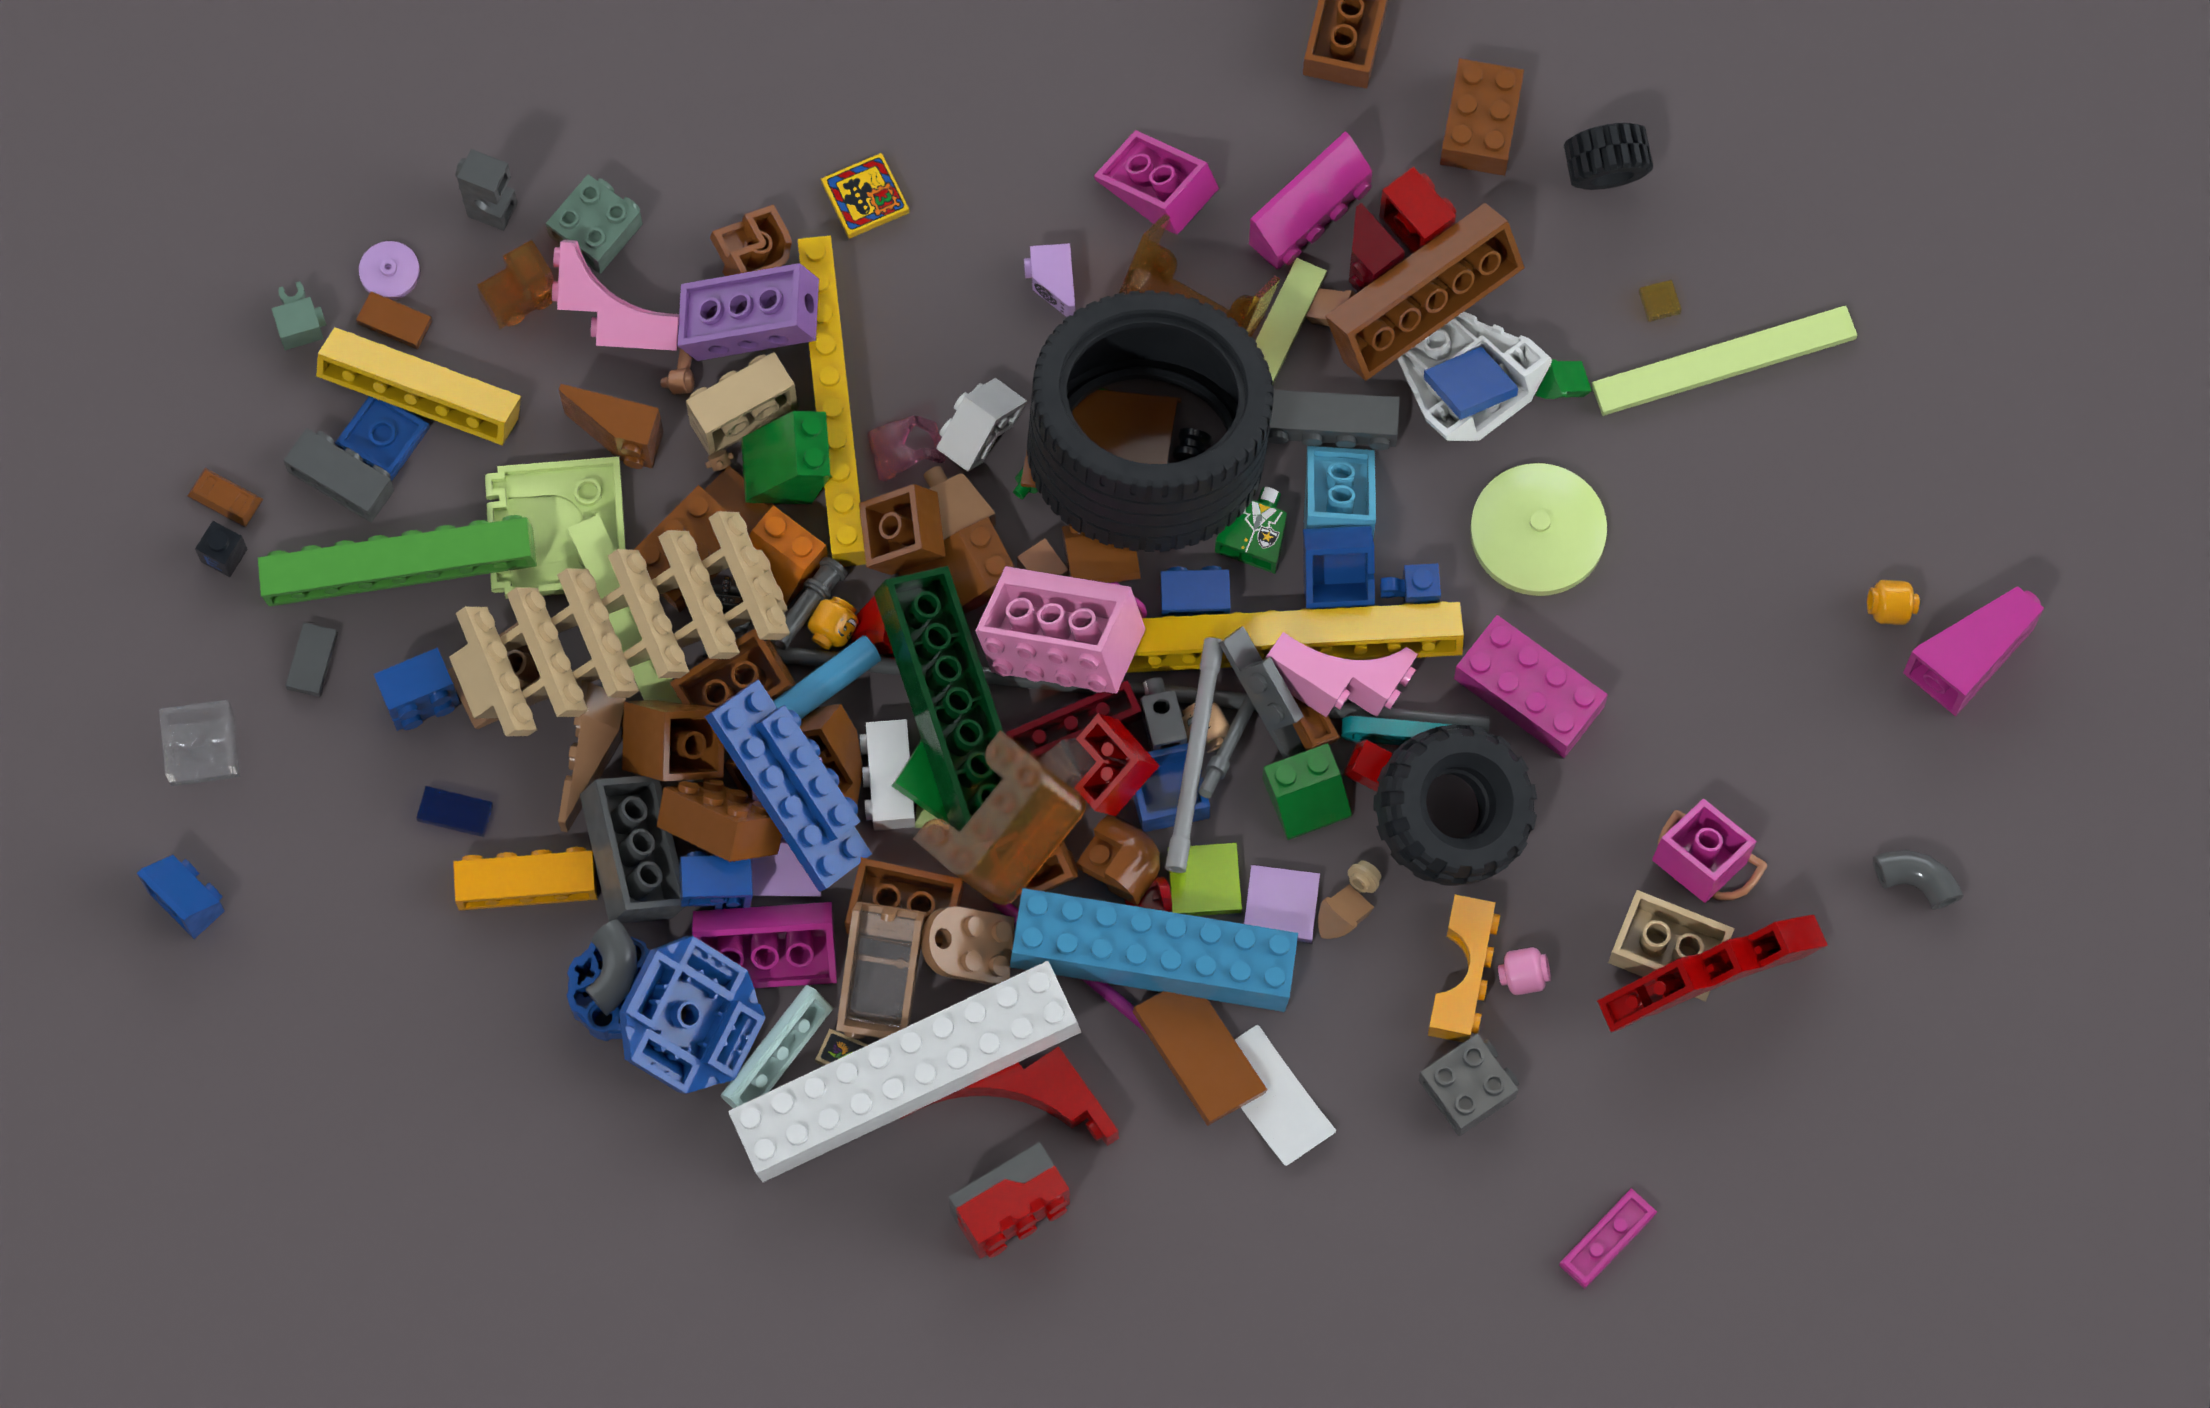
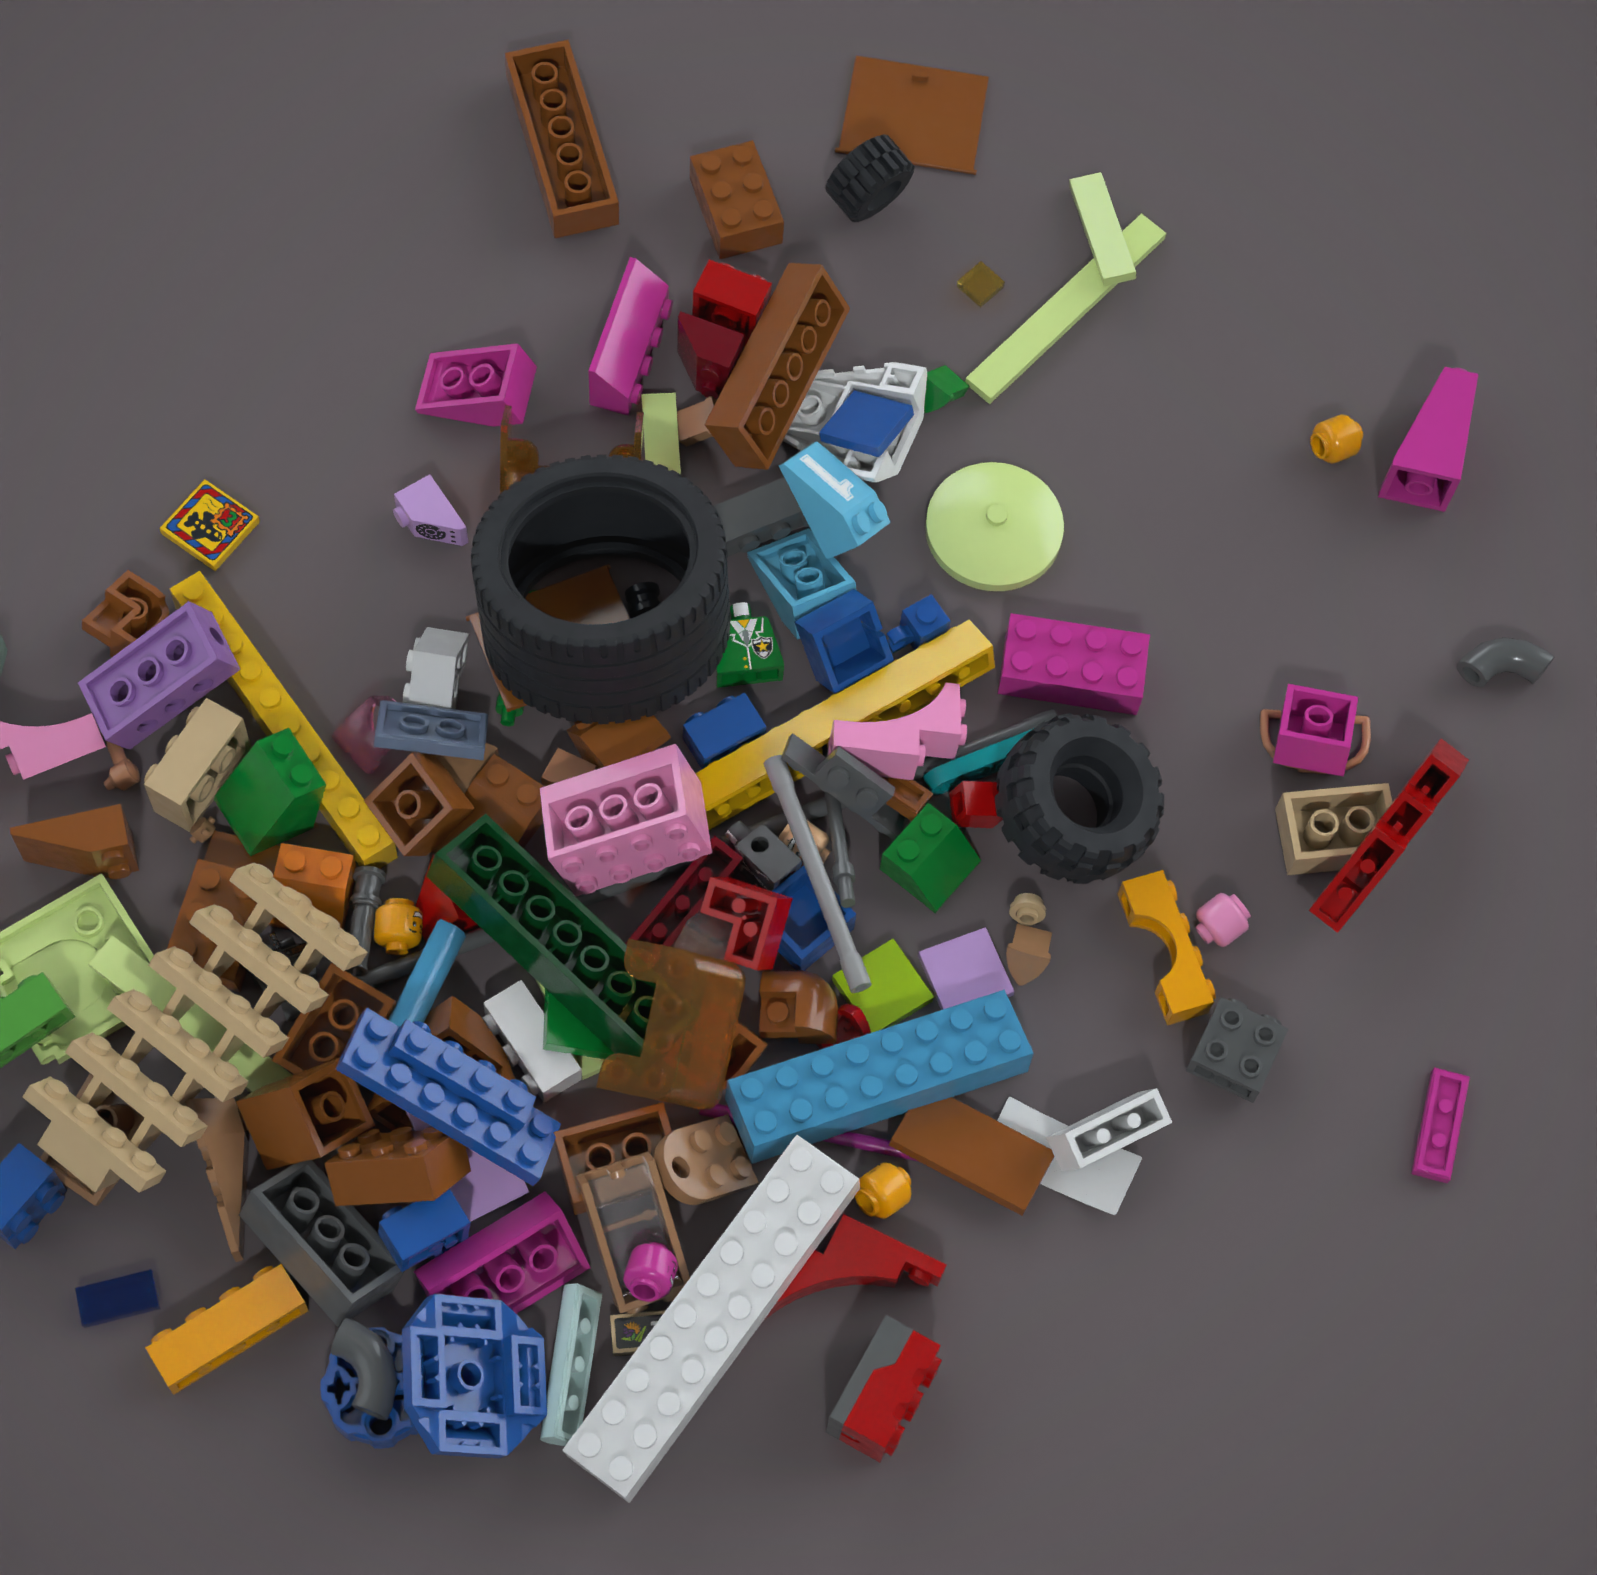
camera: 35 degrees left, 5 degrees down
(876, 1009) = (650, 1271): none -> dark pink head
(945, 471) = (431, 730): none -> sand blue tile
(1105, 1045) = (883, 1190): none -> light orange head
(1317, 1093) = (1109, 1130): none -> white brick
(1399, 437) = (833, 500): none -> medium azure slope
(1697, 109) = (923, 109): none -> dark orange piece
(1799, 303) = (1102, 229): none -> yellowish green tile

